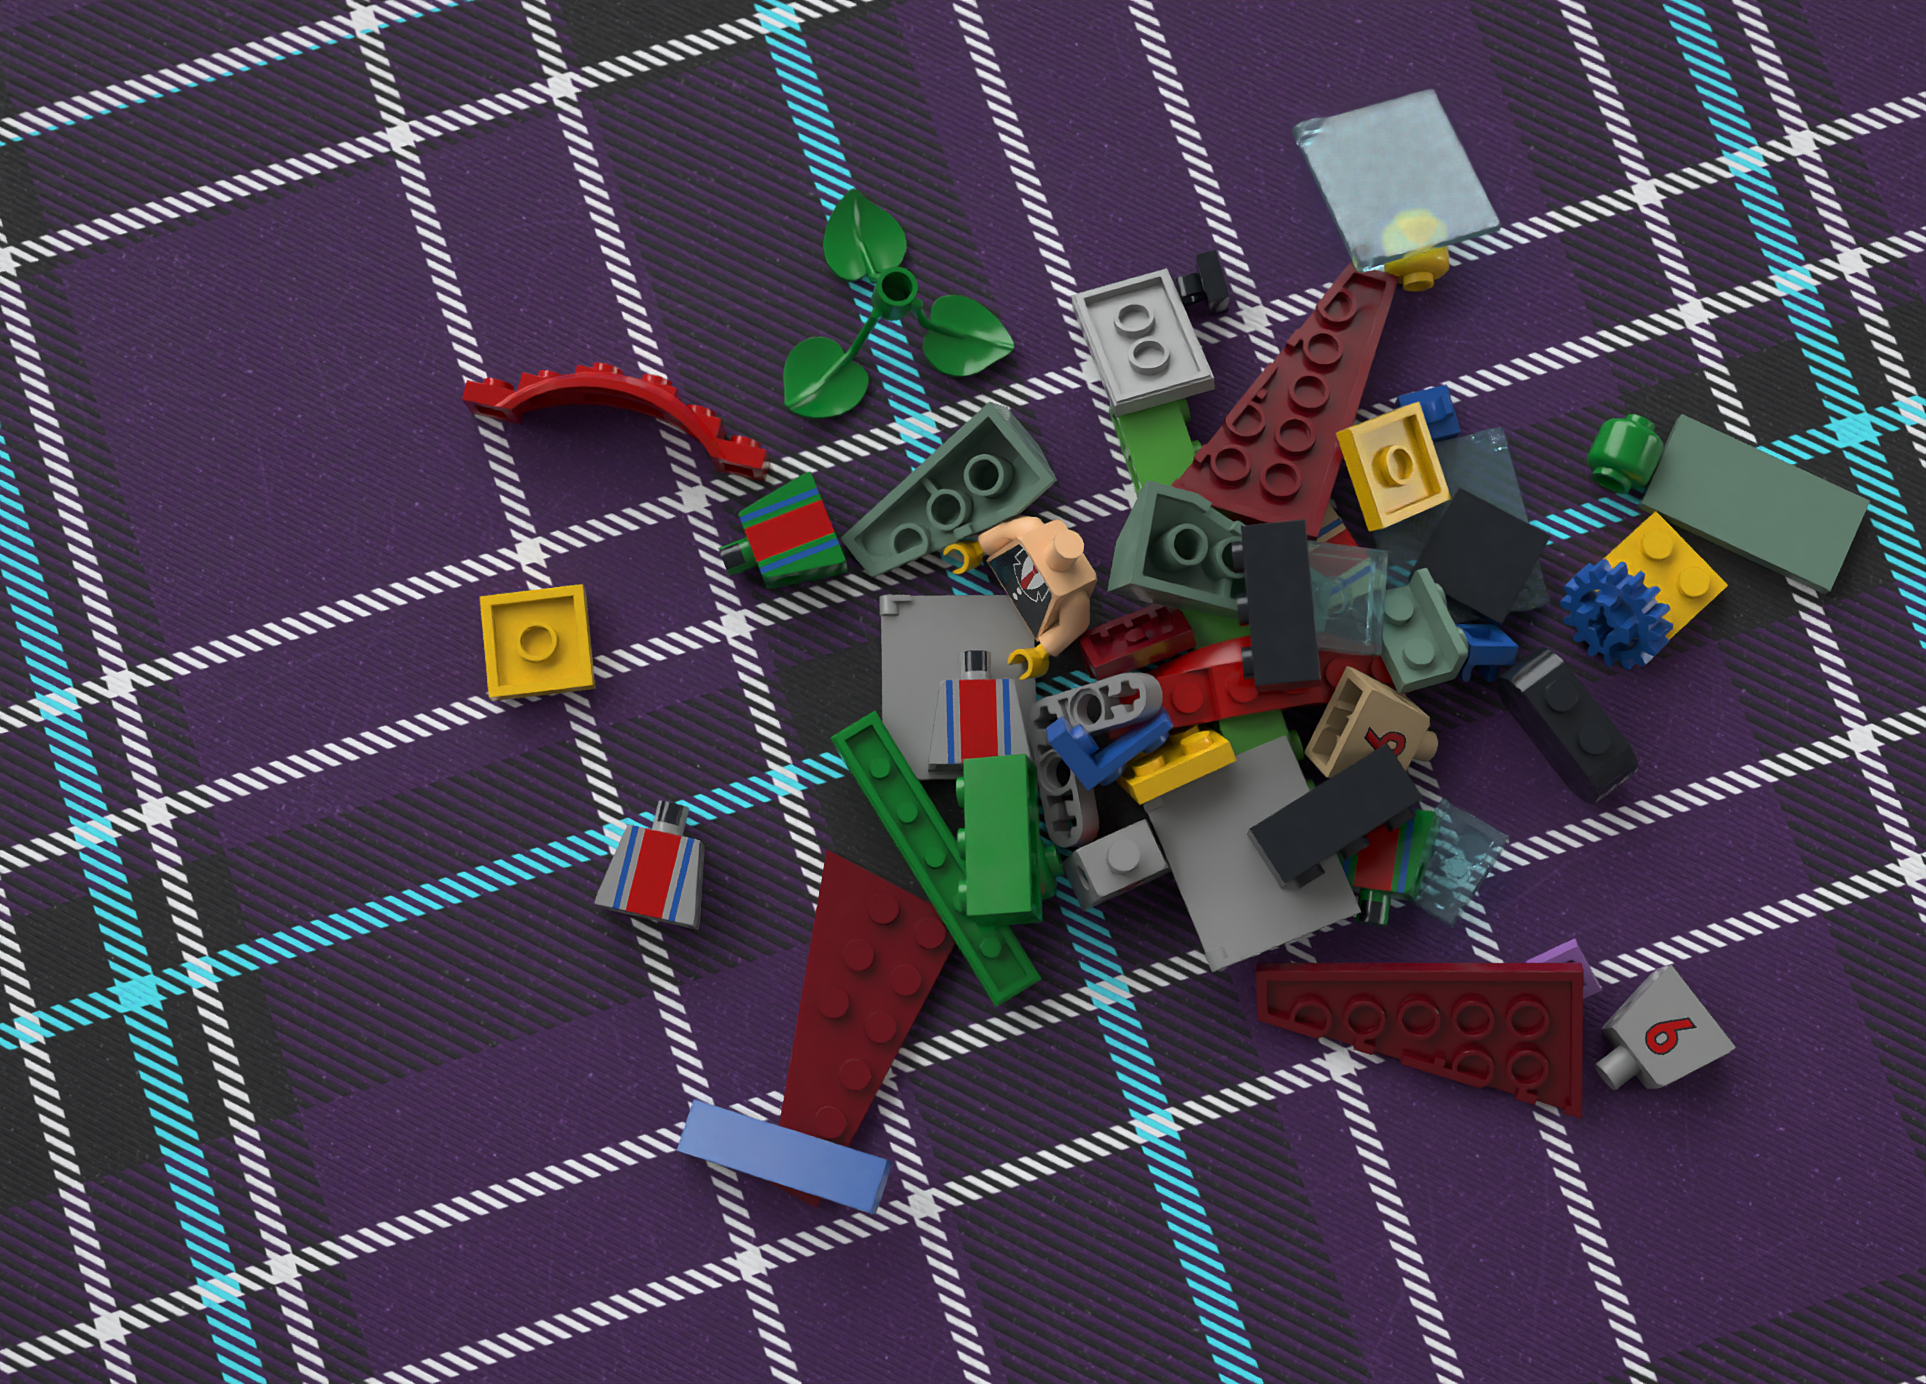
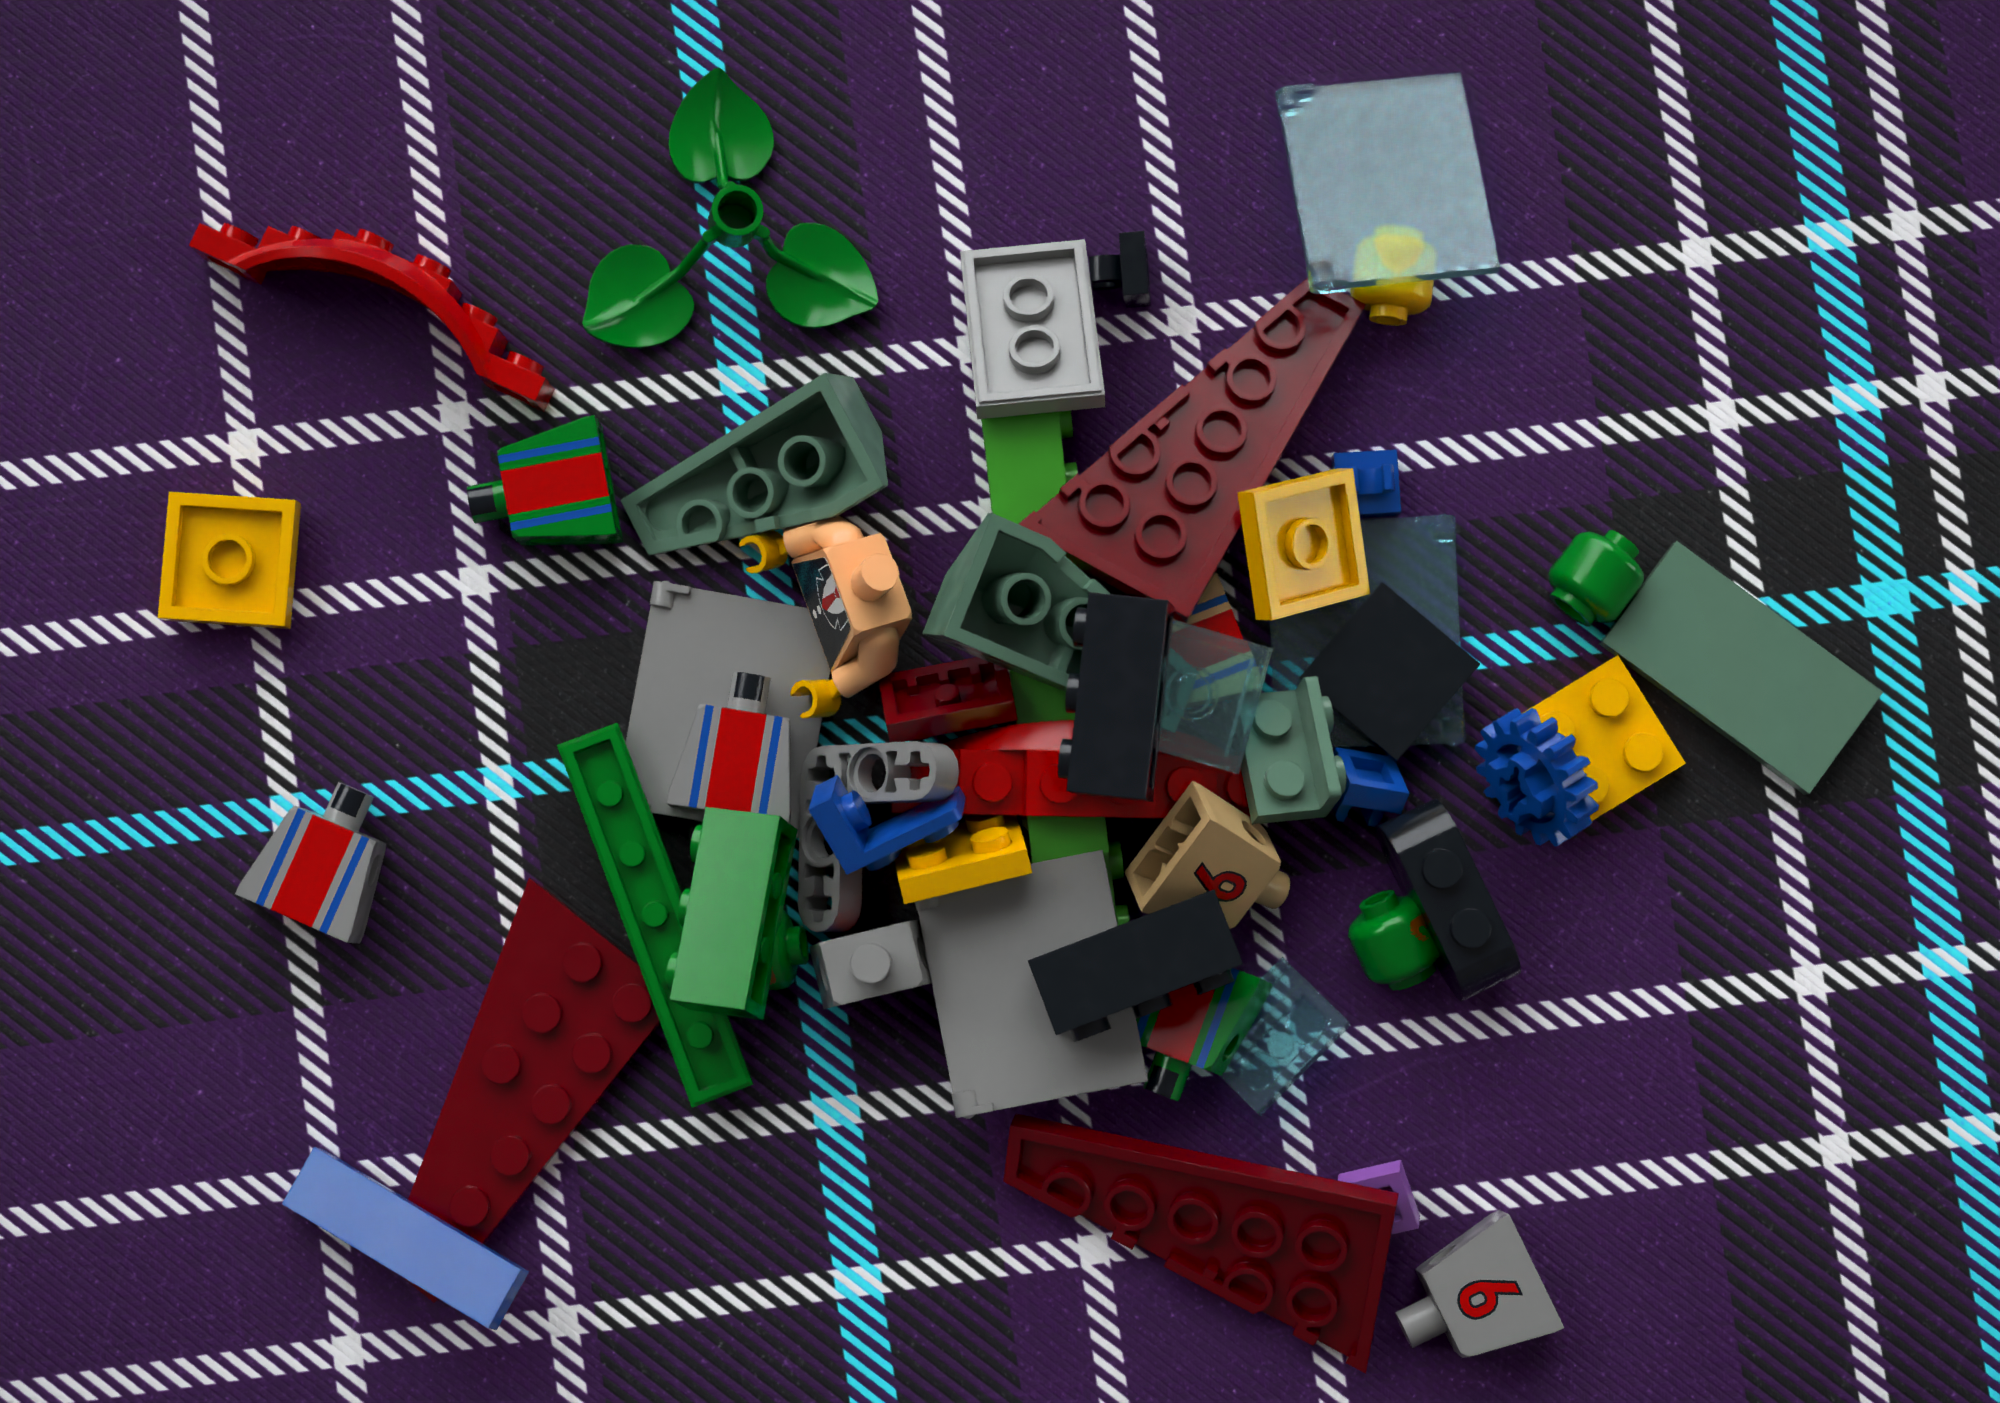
camera: 10 degrees right, 5 degrees up
(1529, 767) = (1393, 941): none -> green head

